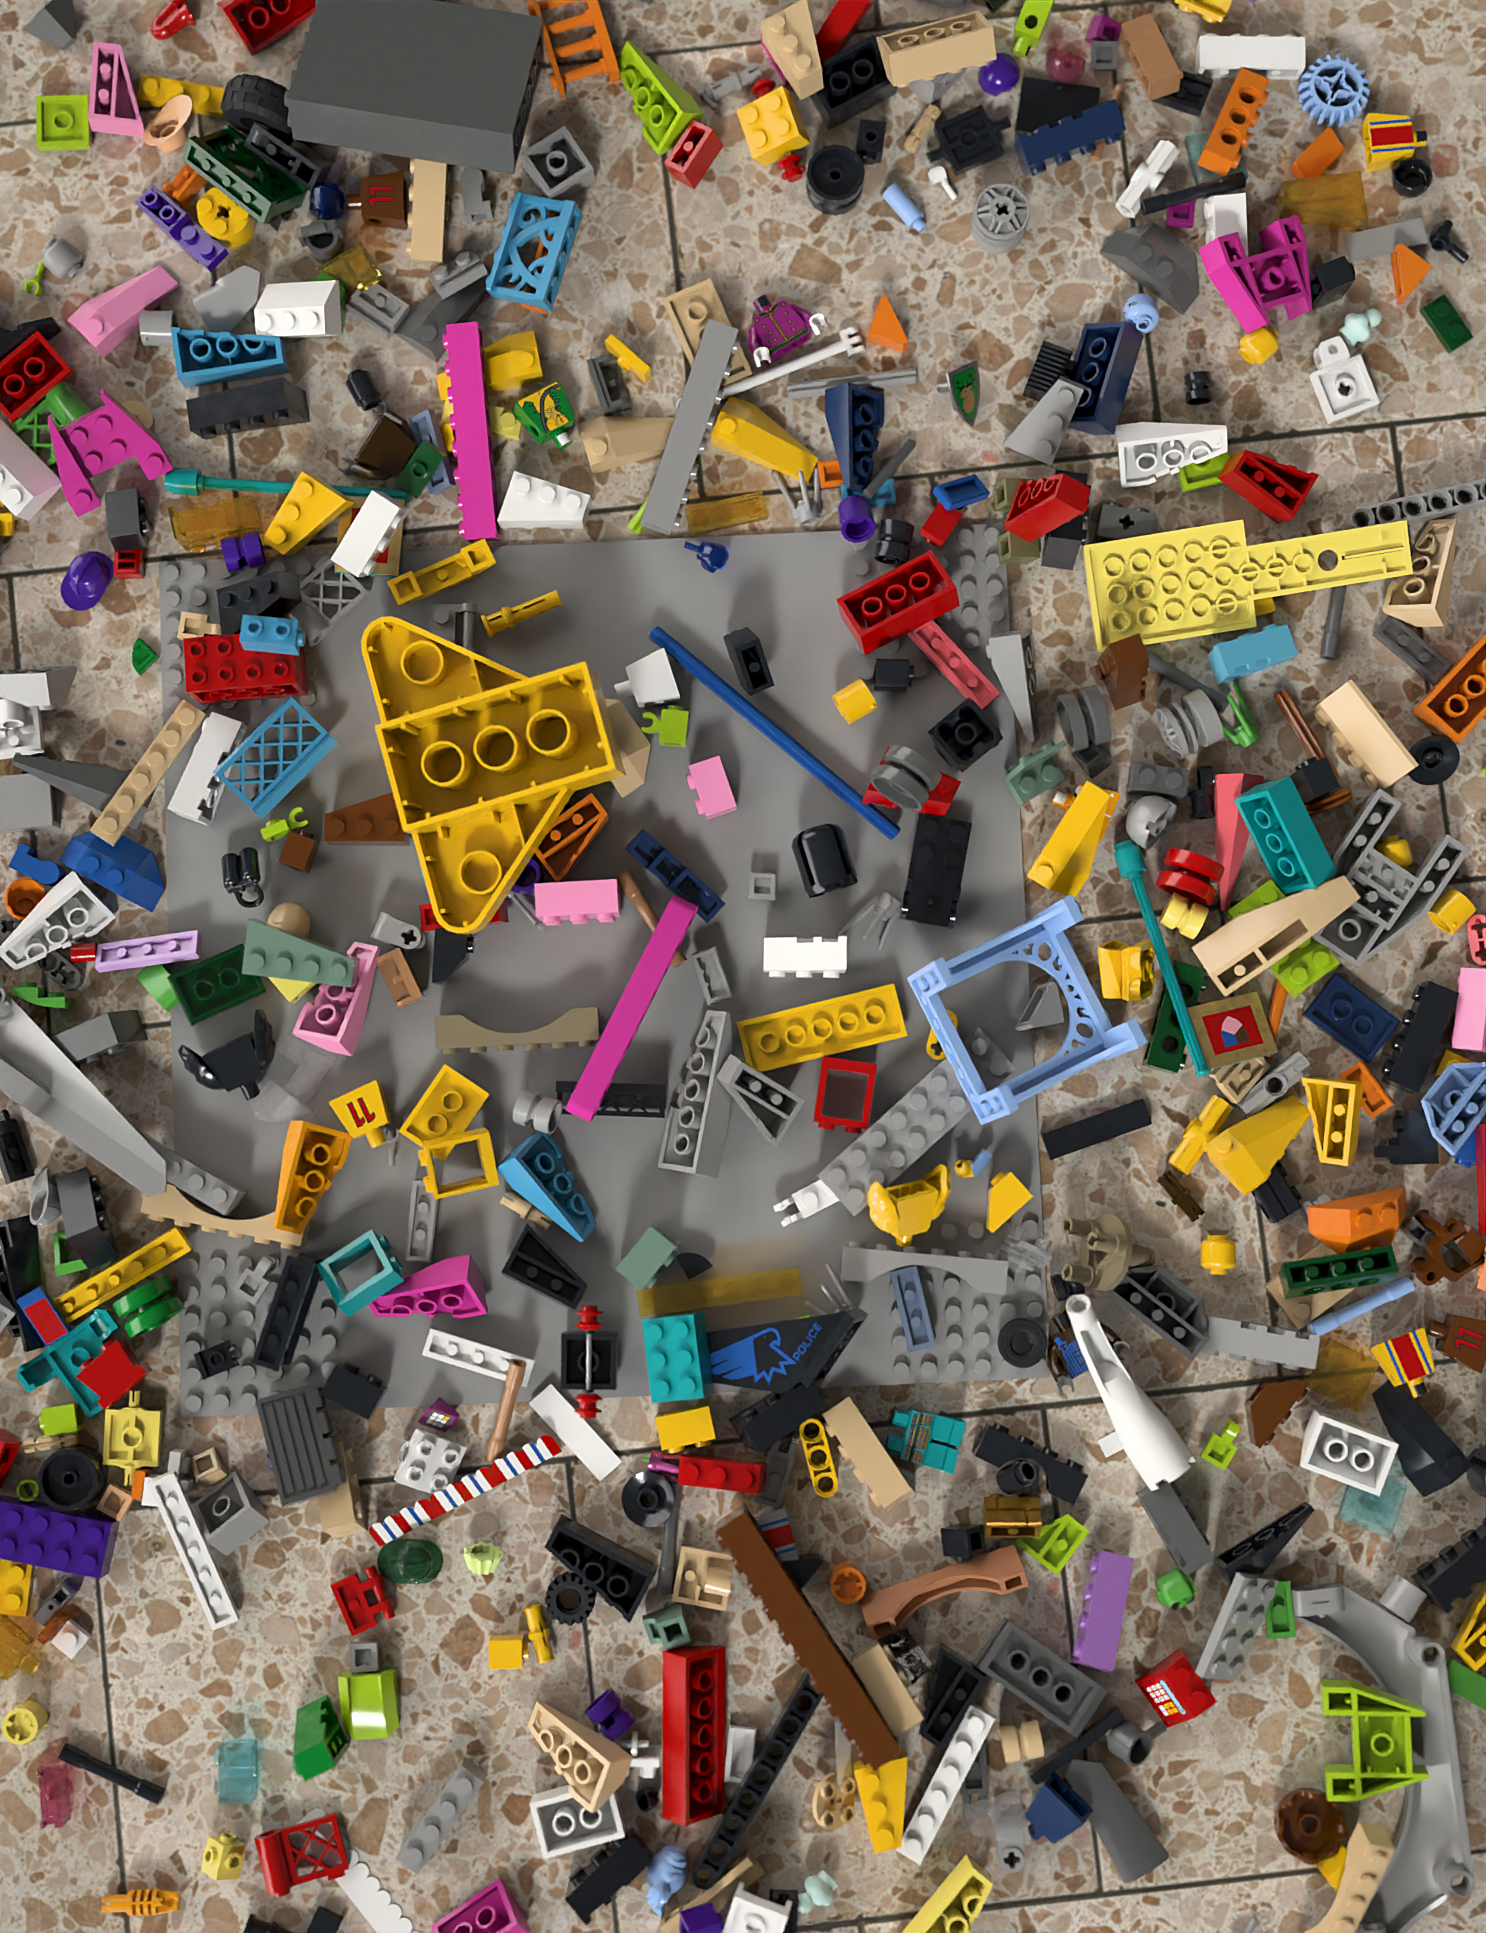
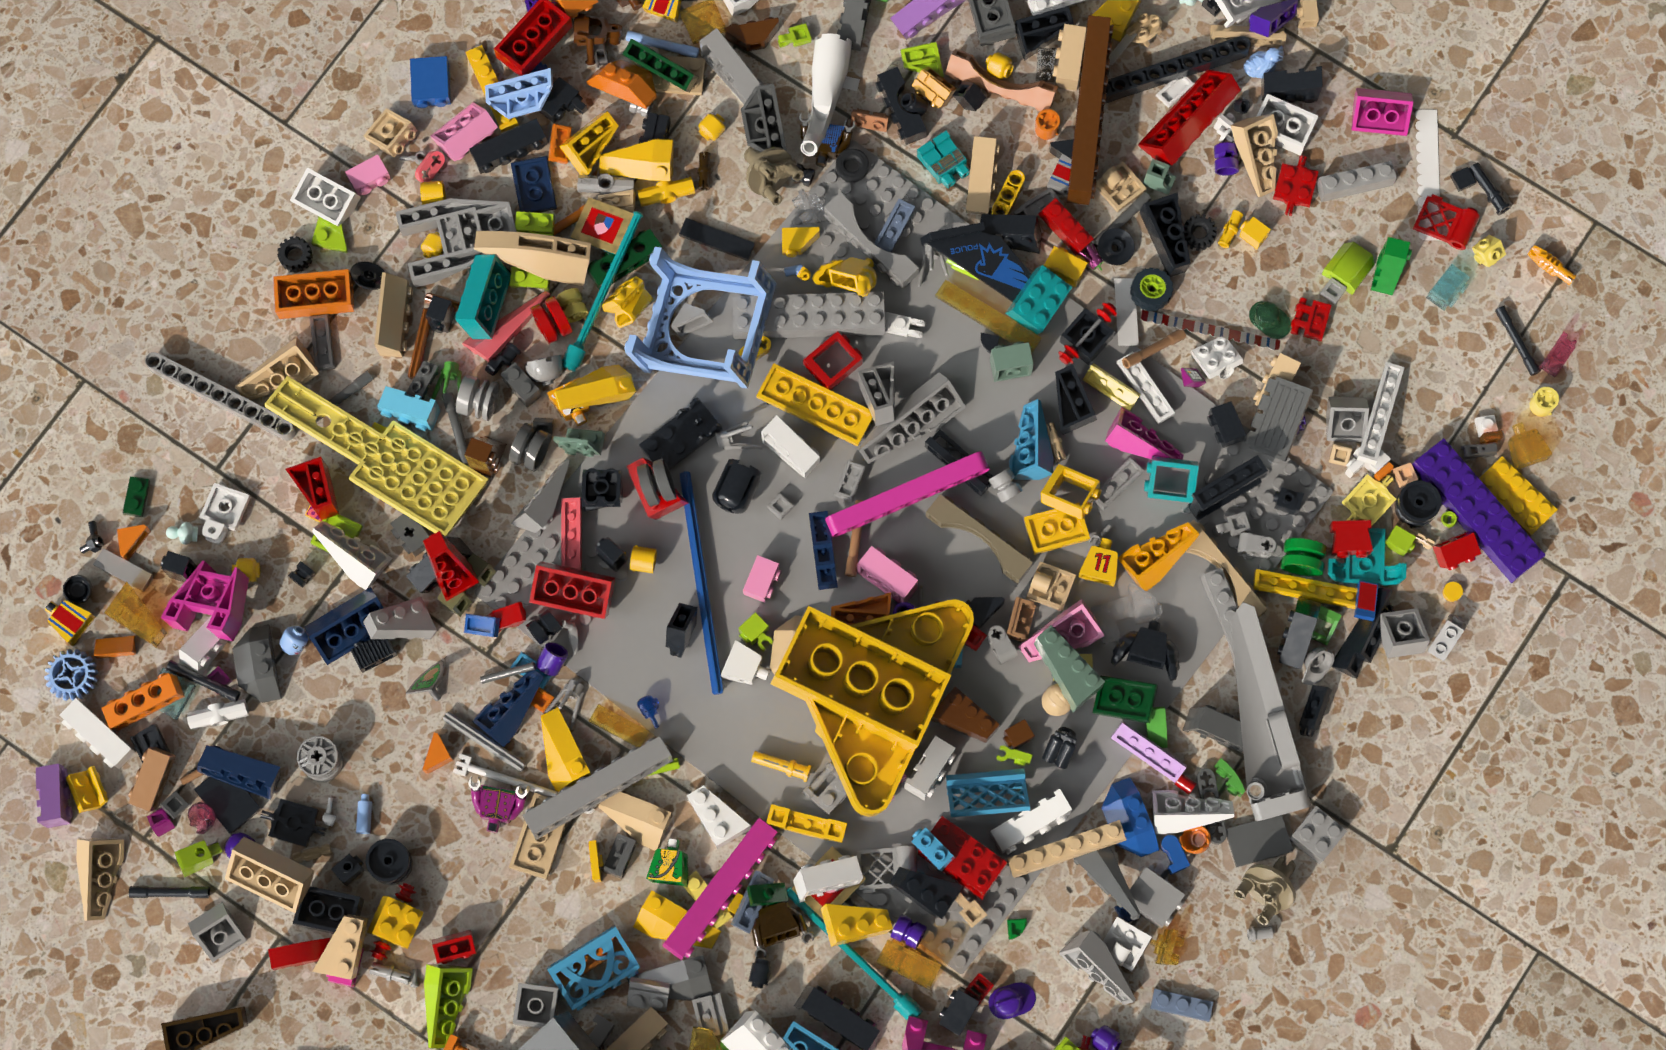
camera: 140 degrees left, 10 degrees down
(215, 1274) = (1254, 544): none -> light grey piece
(359, 738) = (930, 768): none -> white wedge
(397, 1043) = (1051, 586): none -> tan plate
(482, 1557) = (1228, 288): yellowish green piece -> none
(508, 1752) = (1295, 185): none -> red plate
(516, 1325) = (1111, 387): none -> light yellow tile
(564, 1497) = (1160, 284): none -> black wheel
(857, 564) = (573, 633): none -> light grey bar
(961, 1609) = (999, 65): none -> yellow head
(1062, 1409) = (876, 122): none -> nougat hinge
(1267, 698) = (424, 377): none -> dark grey hinge

